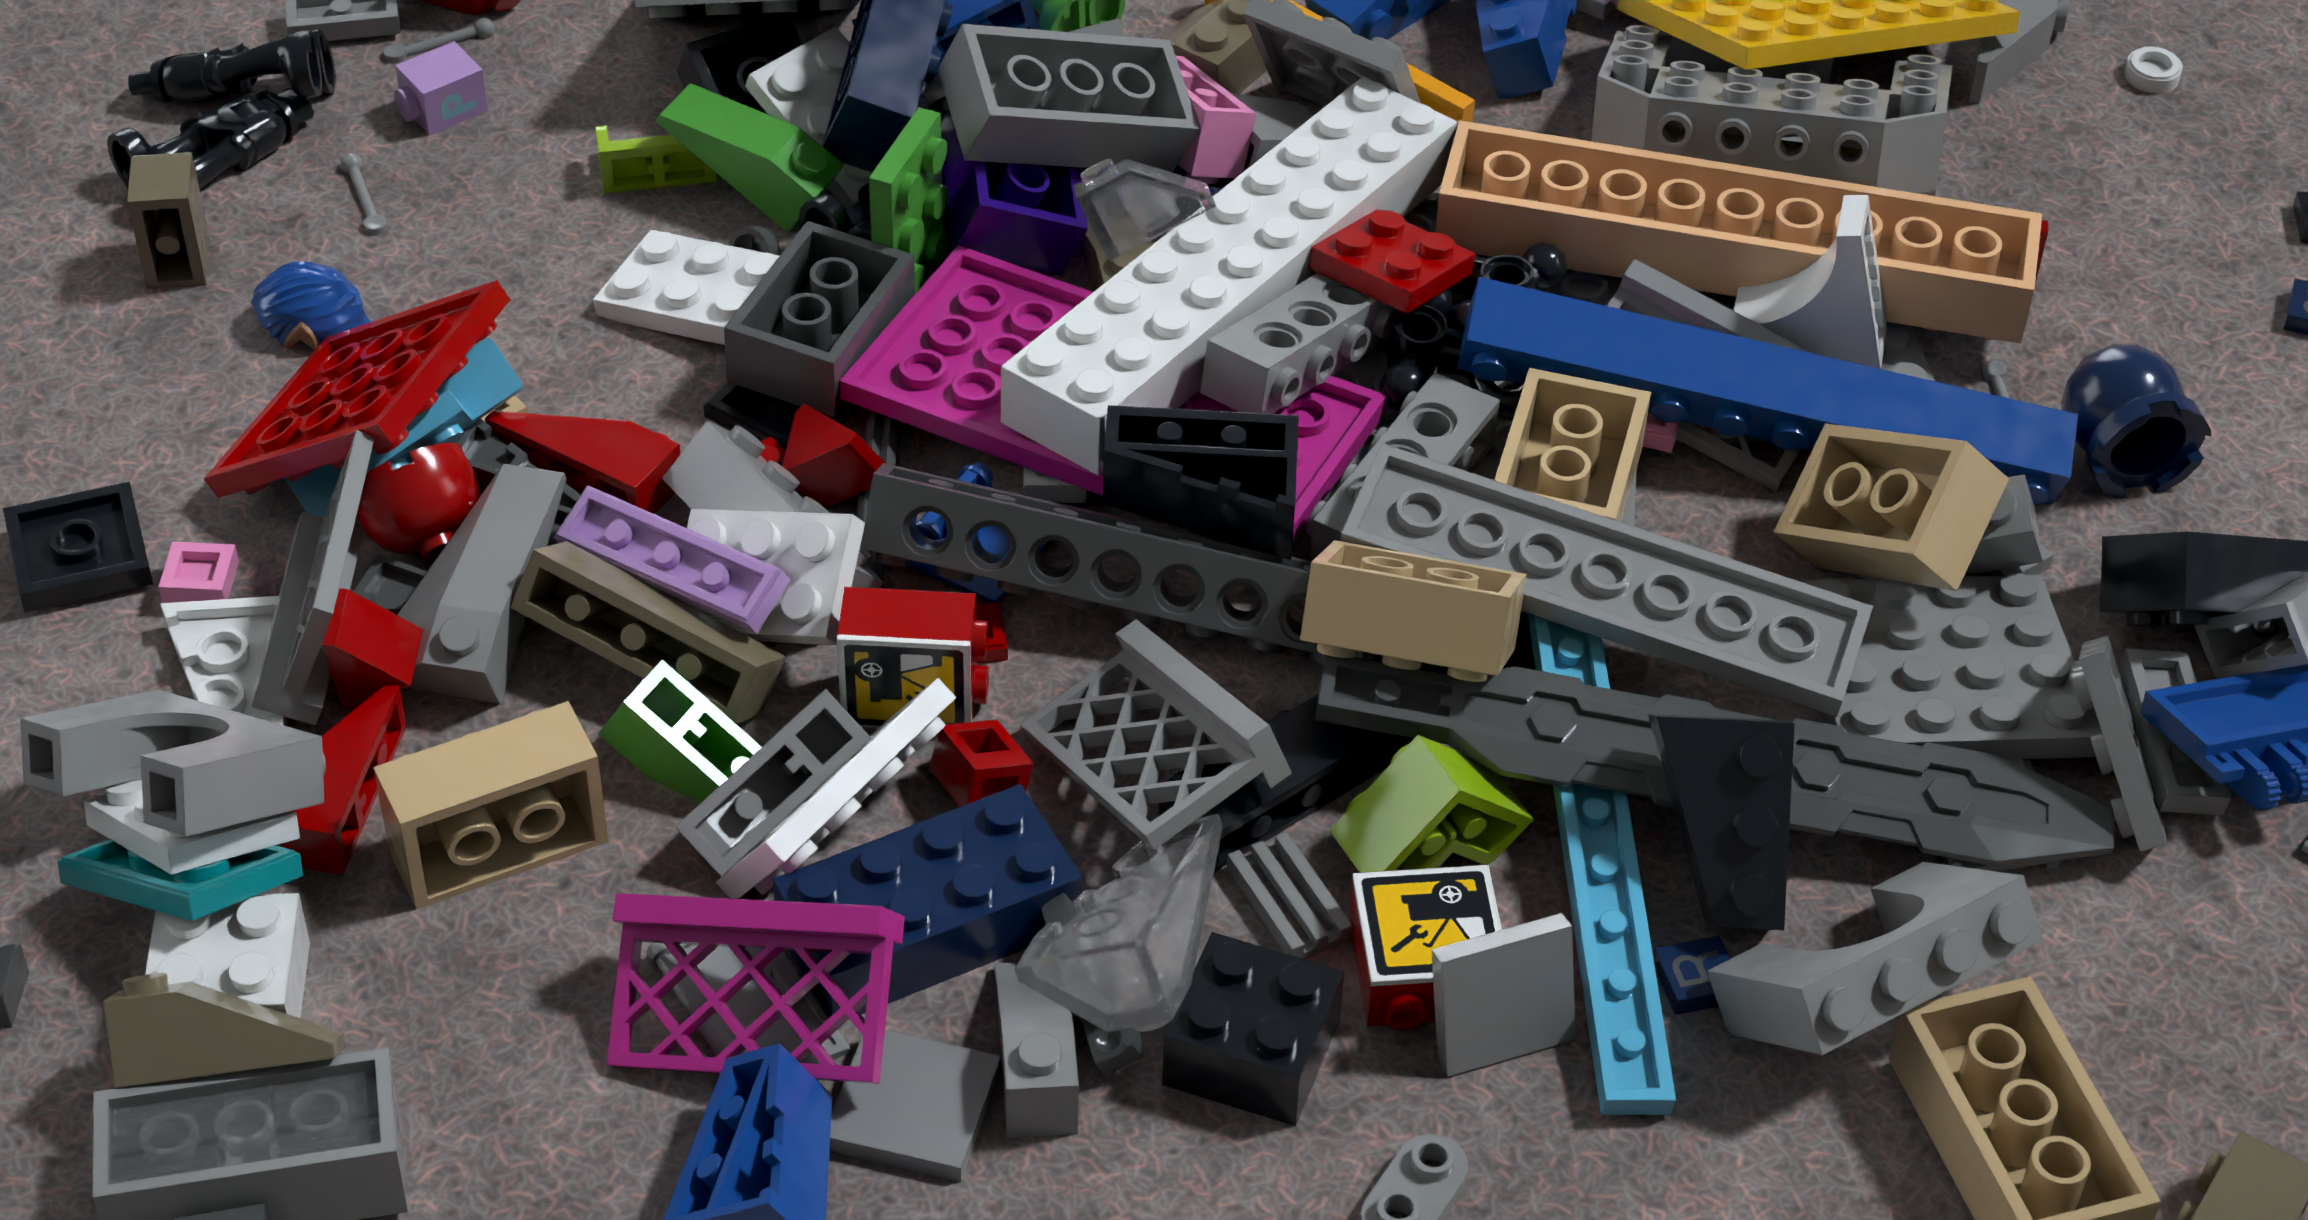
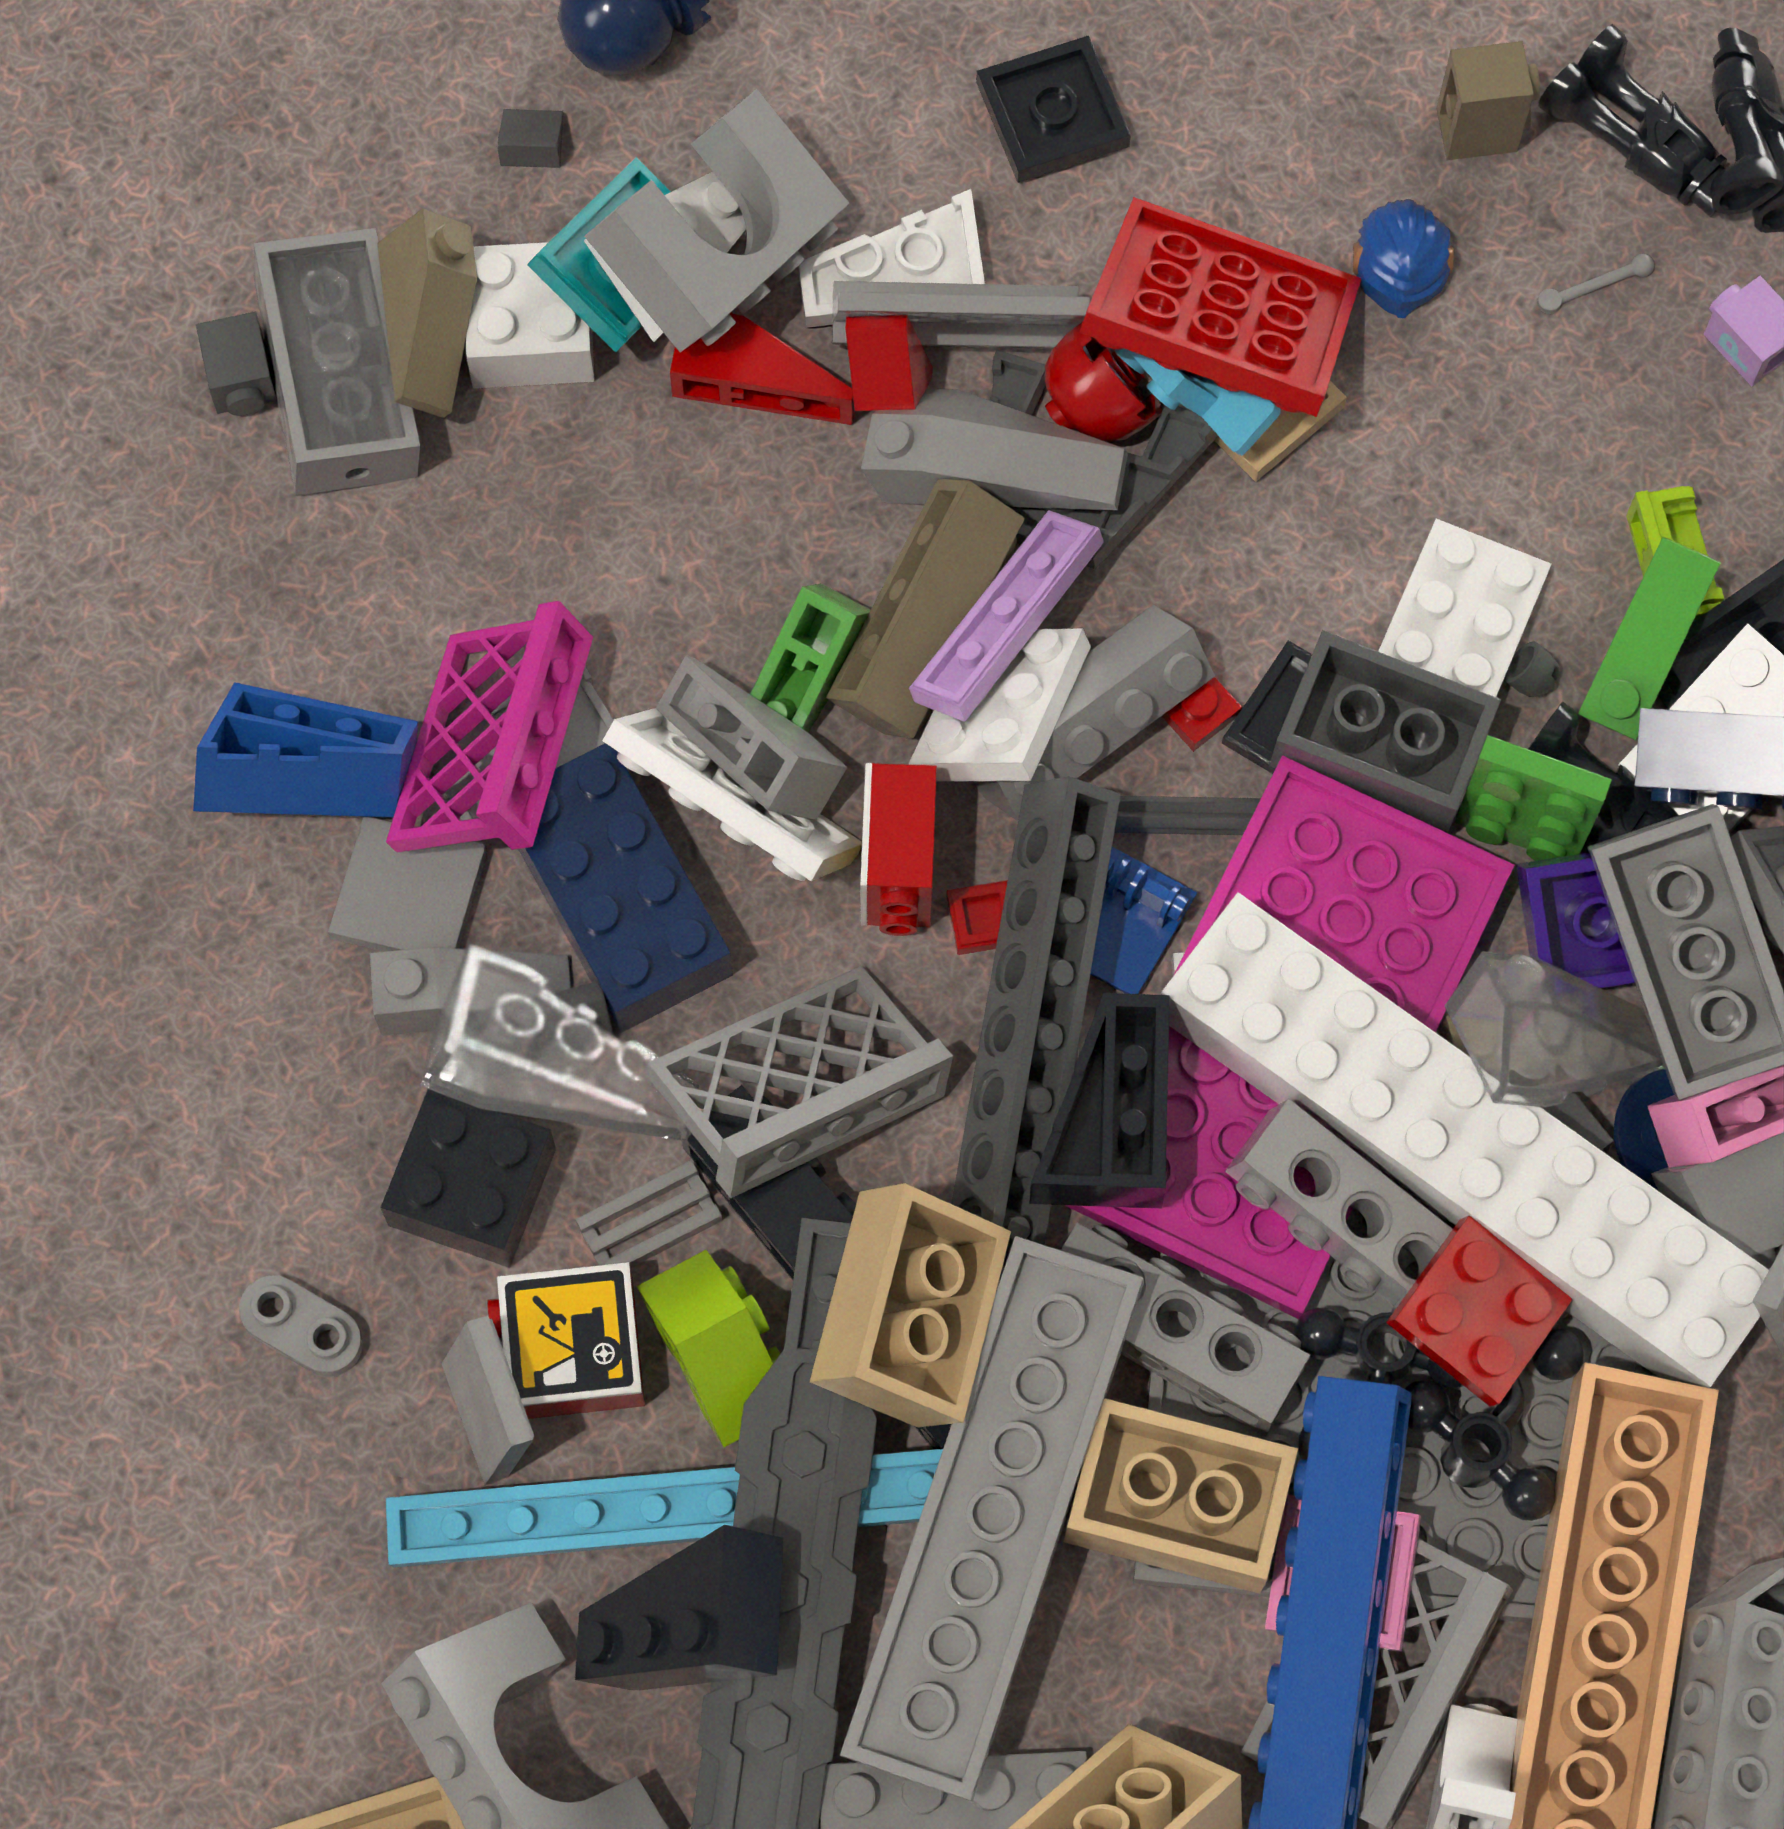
camera: 90 degrees right, 25 degrees up
(198, 572) = (1020, 217): bright pink plate -> none
(492, 804) = (707, 495): tan brick -> none
(594, 452) = (1183, 553): red slope -> none
(828, 458) = (1204, 761): red slope -> none
(978, 761) = (762, 936): red brick -> none
(1684, 972) = (557, 1598): dark blue tile -> none

